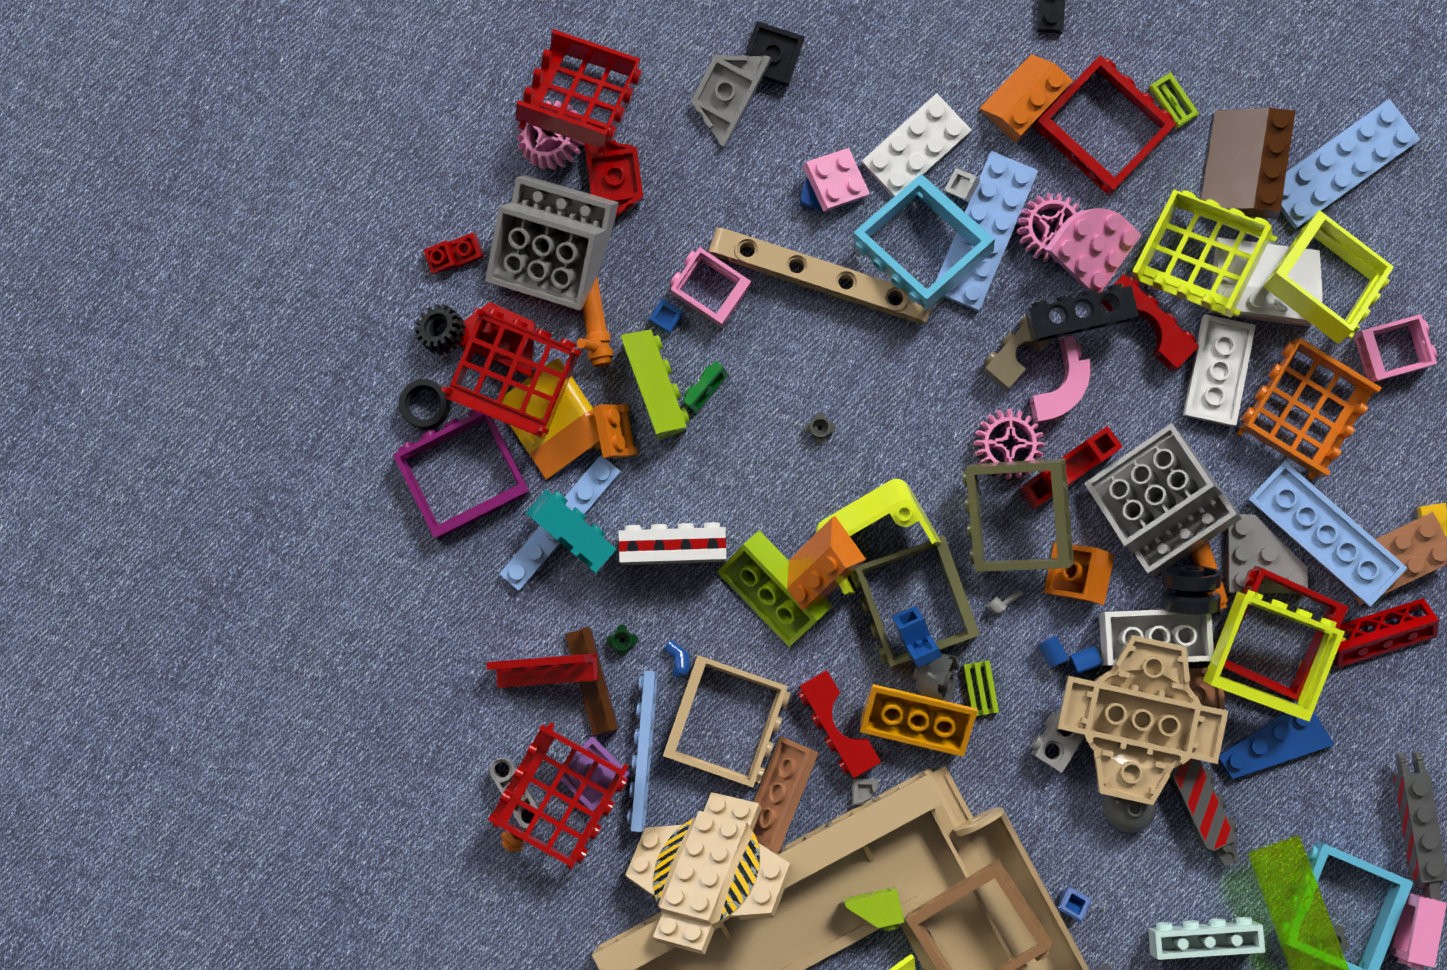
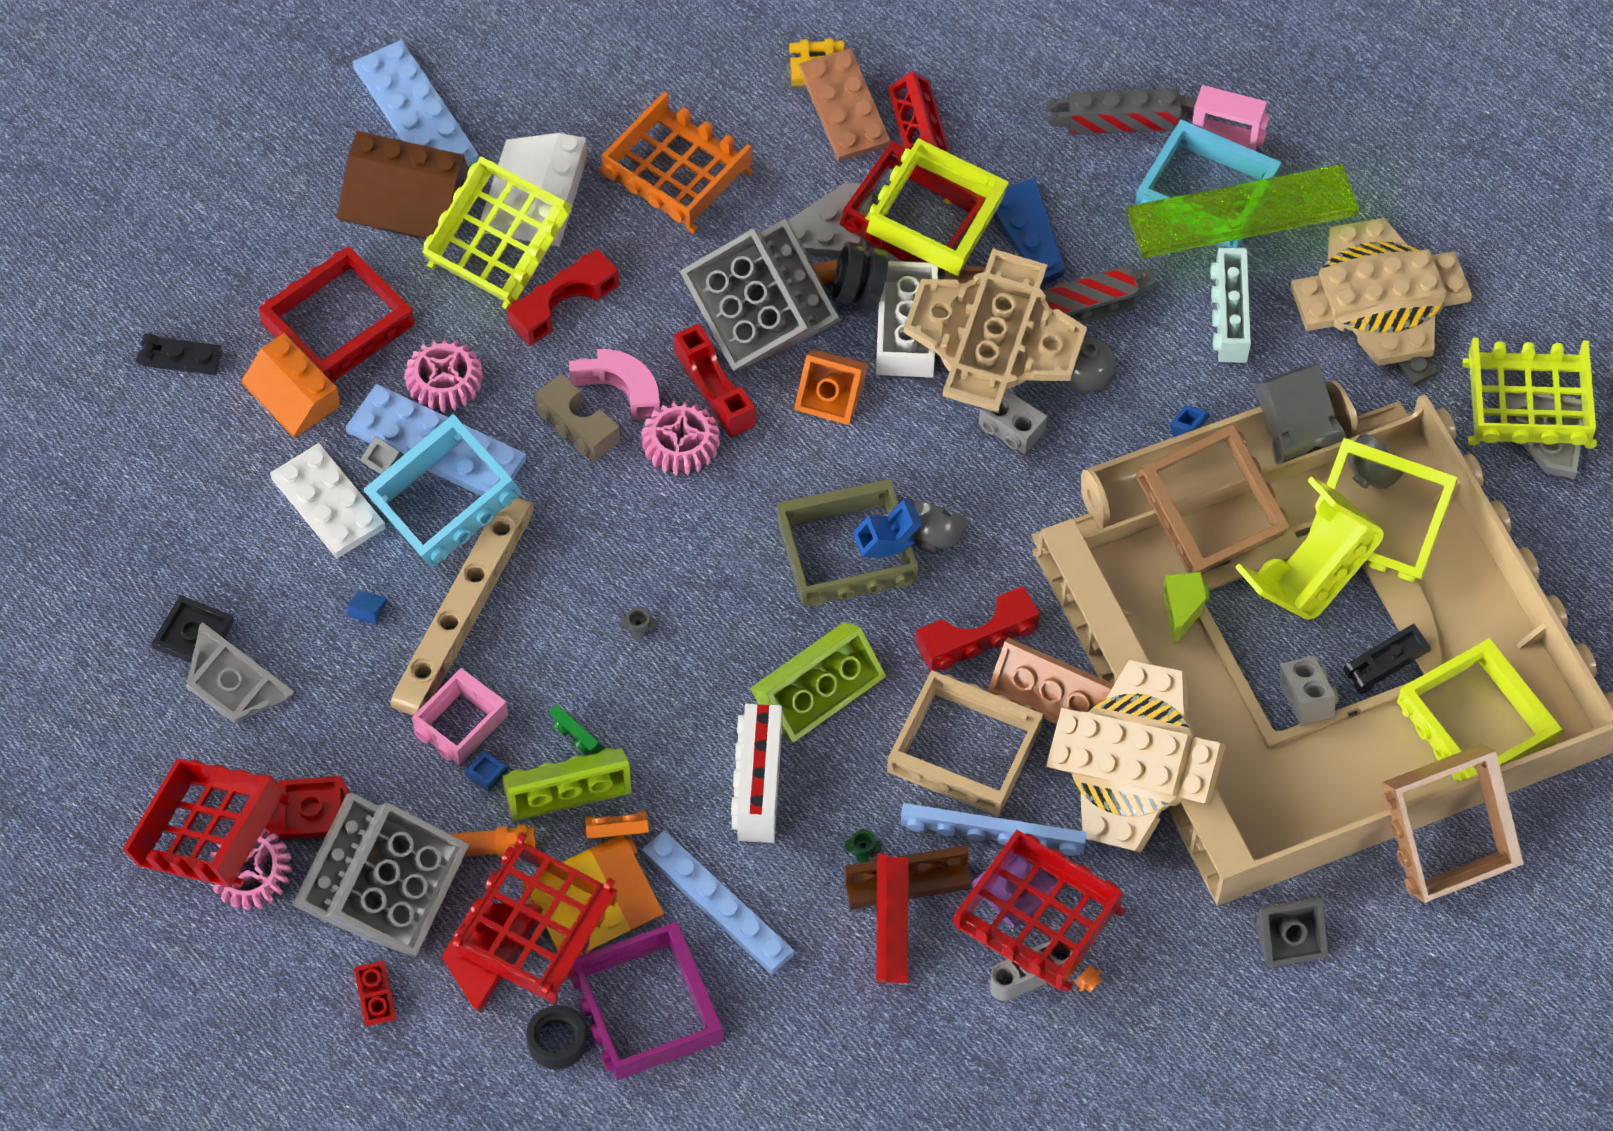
camera: 85 degrees left, 25 degrees down
(430, 322) = (451, 1002): black tyre -> none
(571, 530) = (731, 872): teal wedge -> none
(681, 659) = (890, 784): blue arm -> none
(822, 564) = (796, 610): orange slope -> none
(836, 179) = (354, 578): bright pink plate -> none
(863, 790) = (1053, 616): light grey tile -> none
(892, 498) = (757, 605): neon yellow windscreen -> none
(917, 720) = (978, 545): light orange slope -> none
(994, 706) = (949, 488): lime tile -> none
(997, 606) = (858, 468): light grey hand -> none
(1052, 651) = (913, 416): blue brick -> none
(1061, 512) = (768, 378): olive window -> none
(1085, 660) = (927, 389): blue brick -> none
(1093, 246) = (473, 335): bright pink plate -> none
(1120, 297) = (554, 384): black brick -> none
(1153, 88) = (319, 254): lime tile -> none
(1219, 370) = (625, 238): white plate -> none
(1327, 534) = (811, 157): light blue plate -> none
(1348, 249) = (488, 130): neon yellow window -> none
(1371, 357) = (624, 103): bright pink window -> none

